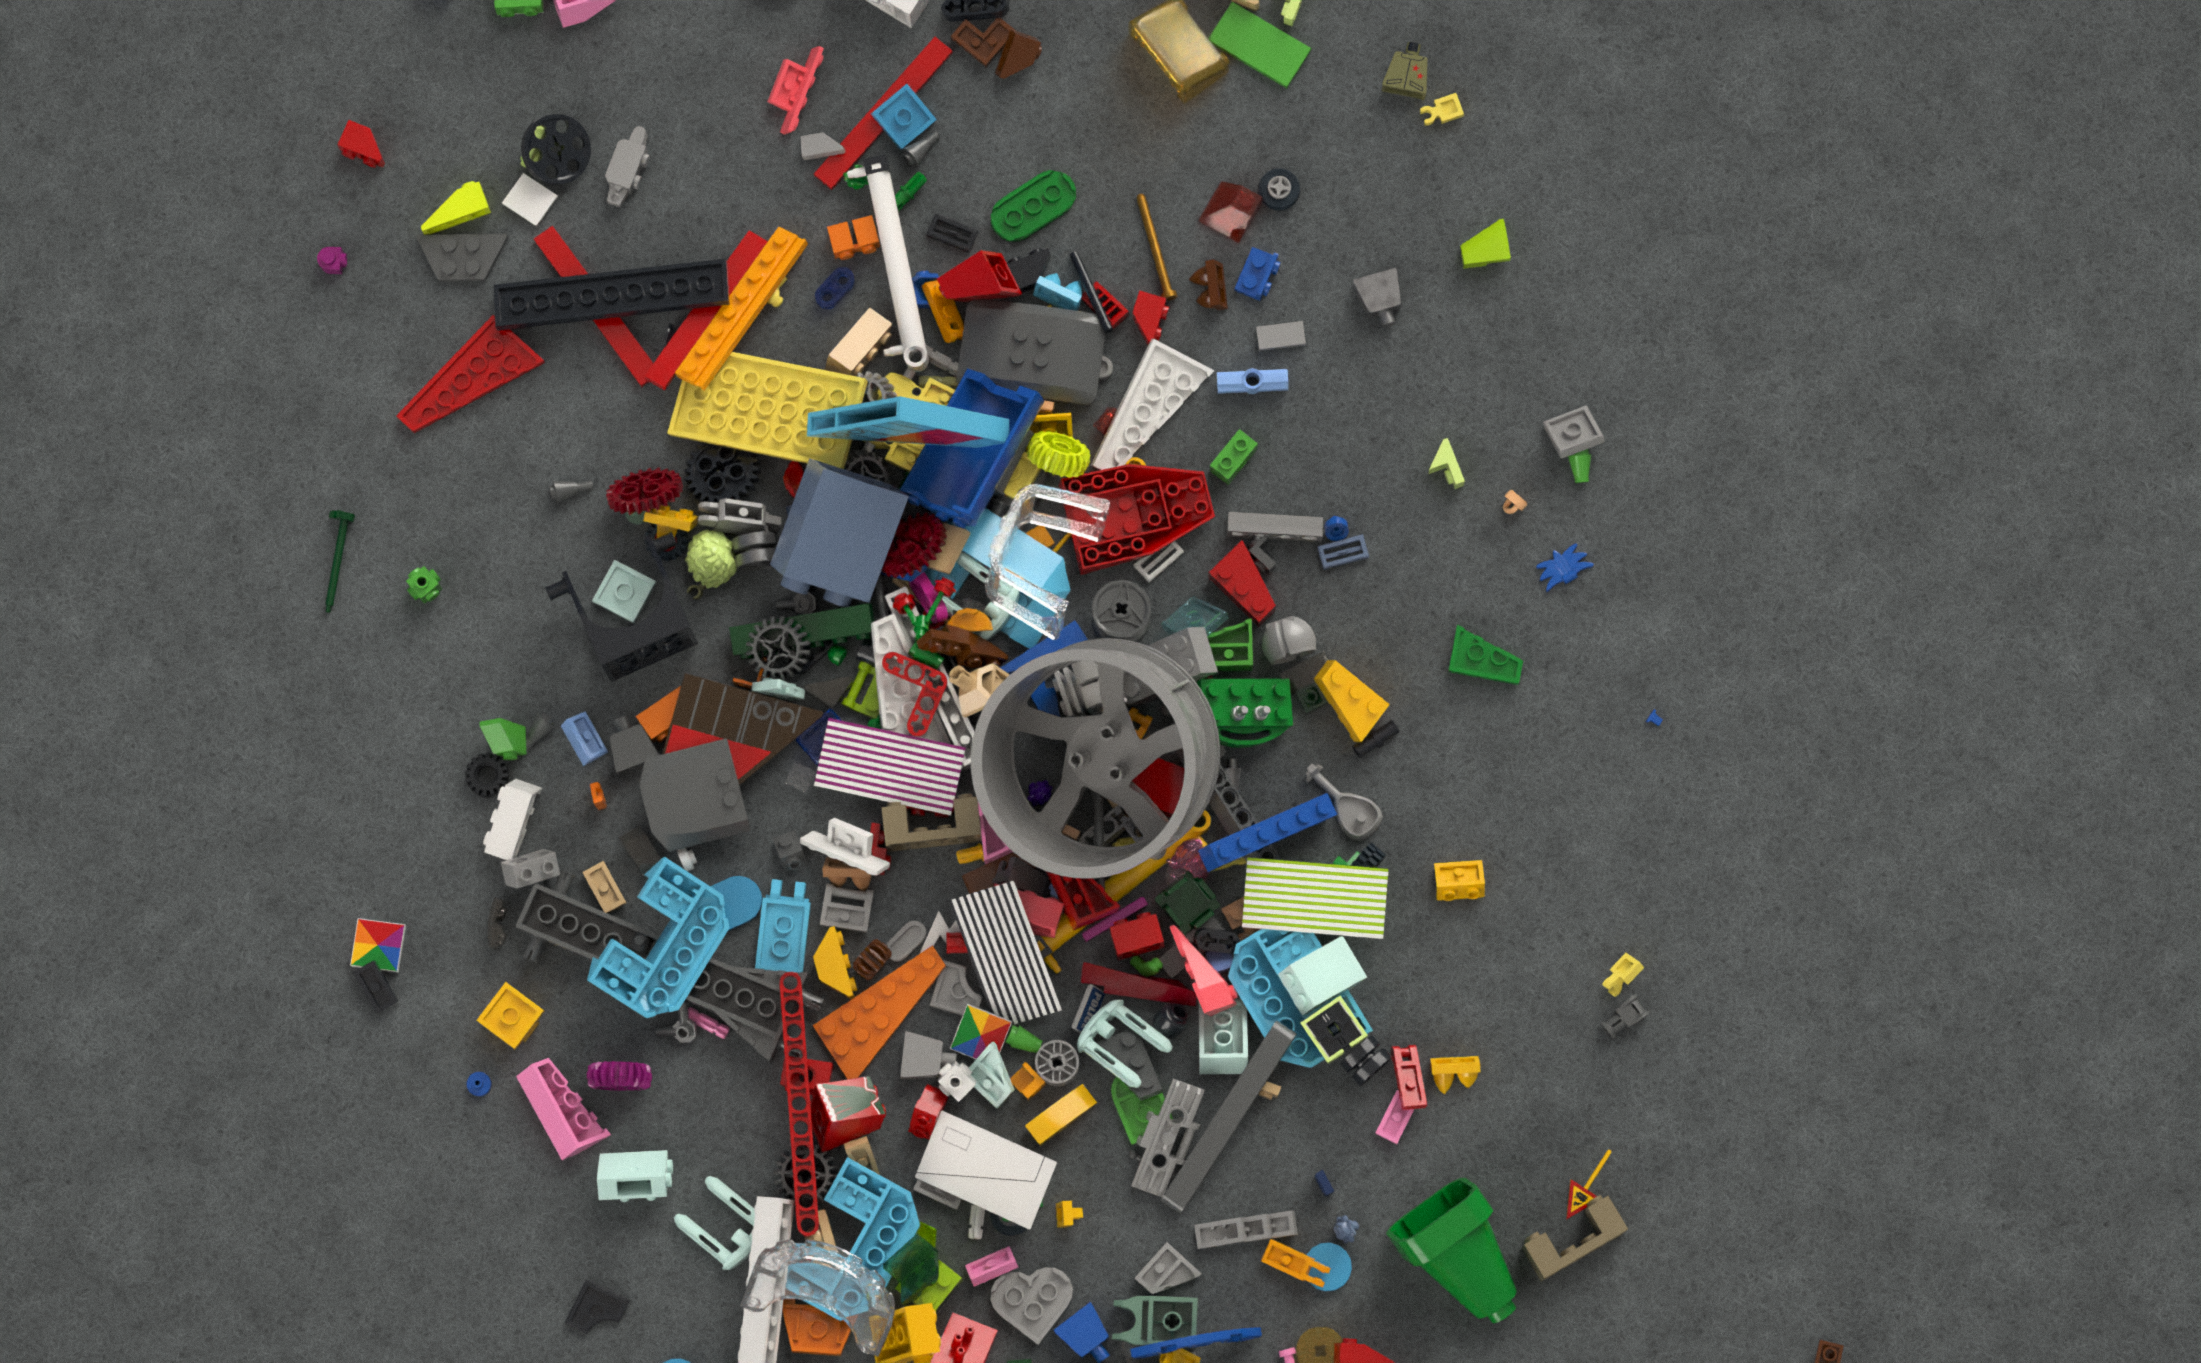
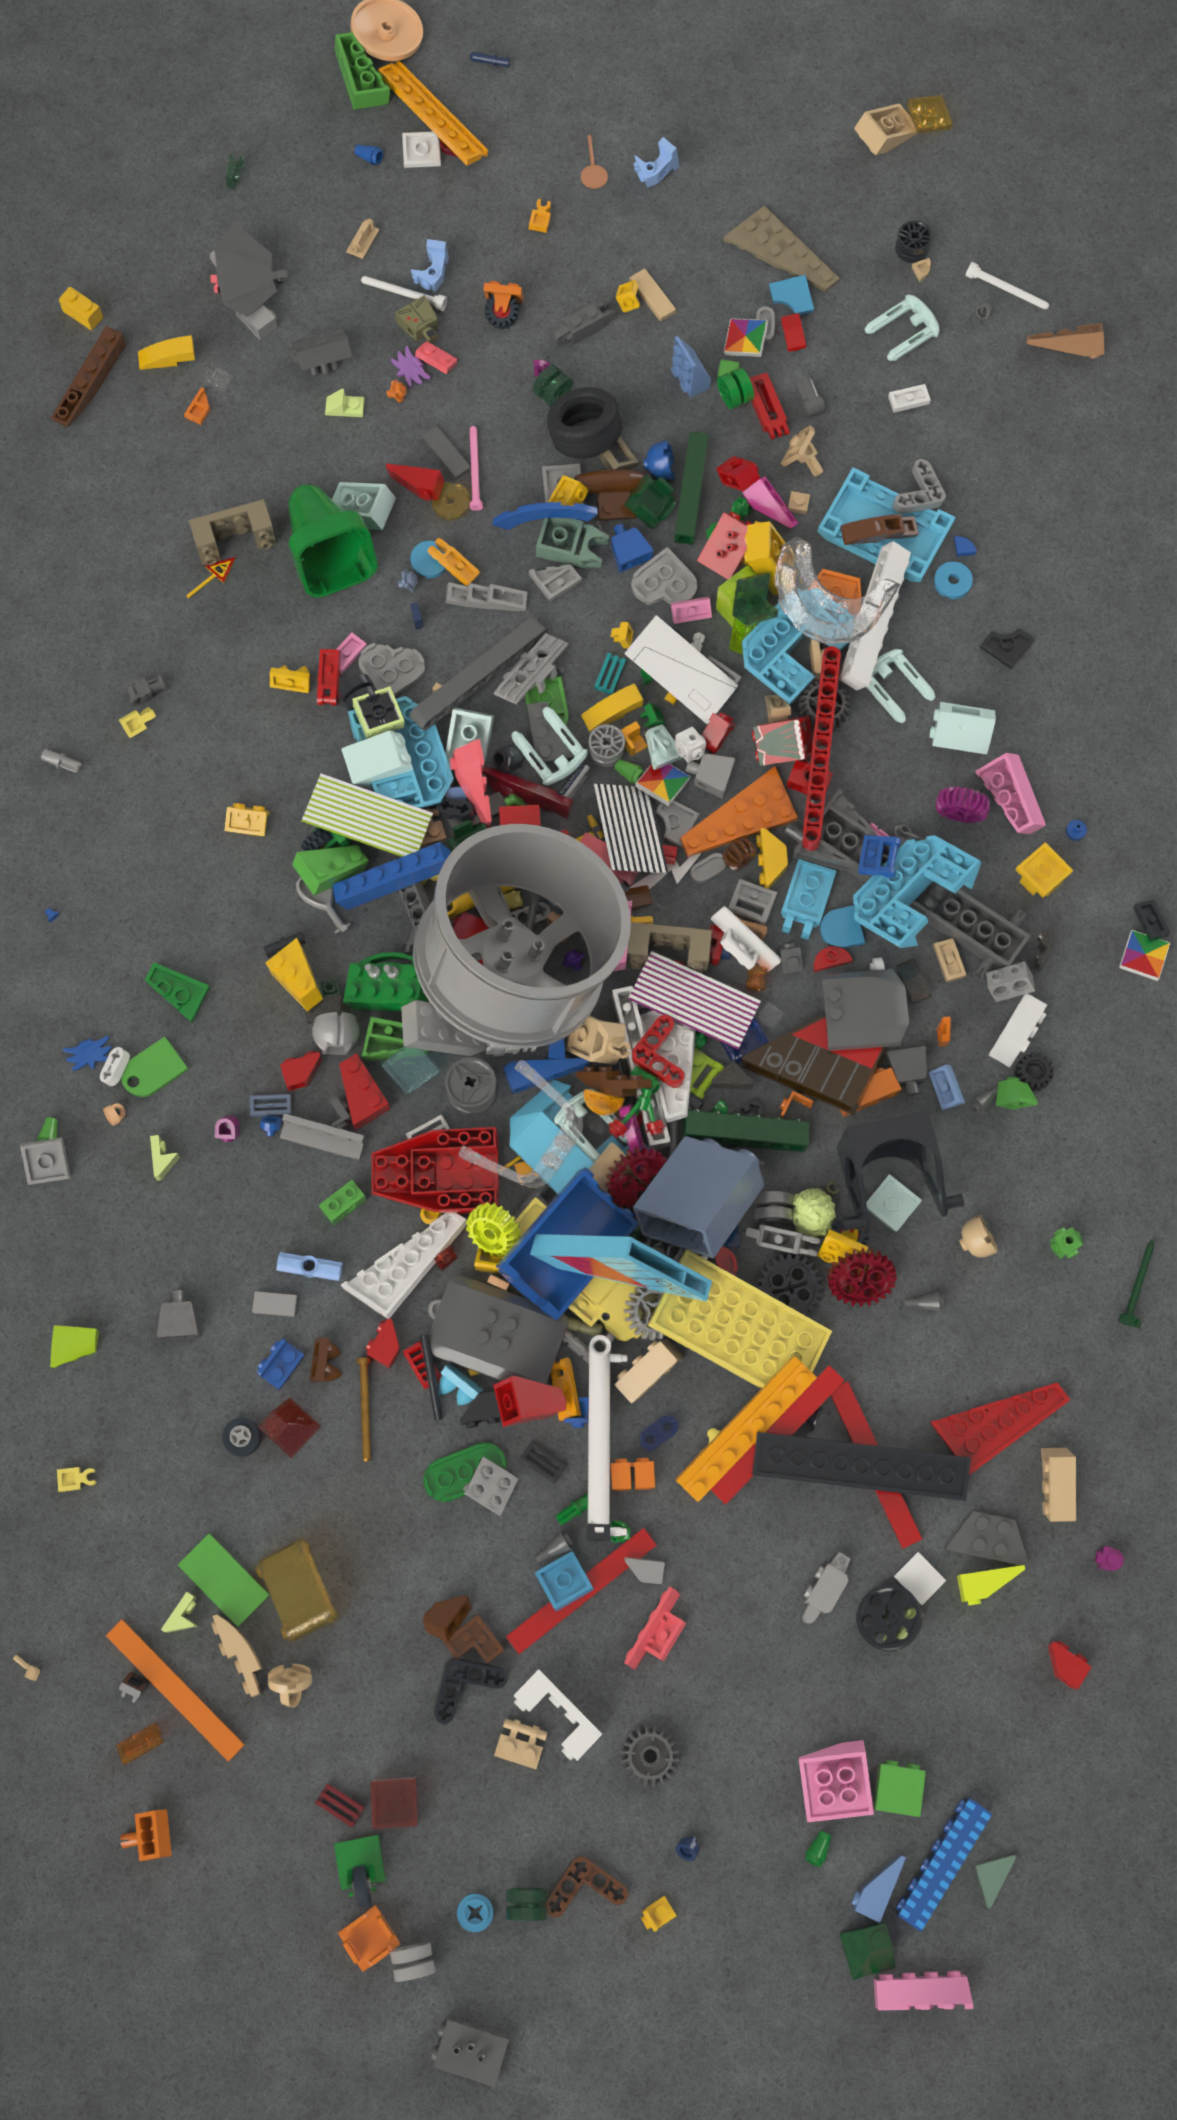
camera: 175 degrees left, 5 degrees down
(396, 324) = (1059, 1484): none -> tan wedge
(522, 567) = (977, 1238): none -> tan cylinder
(714, 978) = (872, 855): none -> blue plate
(743, 862) = (830, 958): none -> red plate
(778, 689) = (778, 1083): light aqua wing -> none
(783, 637) = (775, 1124): dark grey gear -> none
(823, 814) = (756, 978): none -> clear orange wheel
(1001, 192) = (491, 1486): none -> light grey hinge
(1008, 1116) = (654, 714): none -> green tile
(1076, 1142) = (616, 659): none -> teal tile
(1320, 593) = (300, 1071): none -> red slope
(1338, 1107) = (392, 667): none -> light grey plate
(1345, 831) = (329, 866): none -> bright green wedge
(1382, 512) = (227, 1128): none -> magenta plate
(1407, 73) = (96, 1520): olive torso -> none
(1428, 1319) = (368, 500): none -> light aqua slope
(1484, 565) = (154, 1069): none -> bright green tile
(1528, 555) = (114, 1066): none -> white beam
(1697, 905) = (60, 761): none -> light grey axle

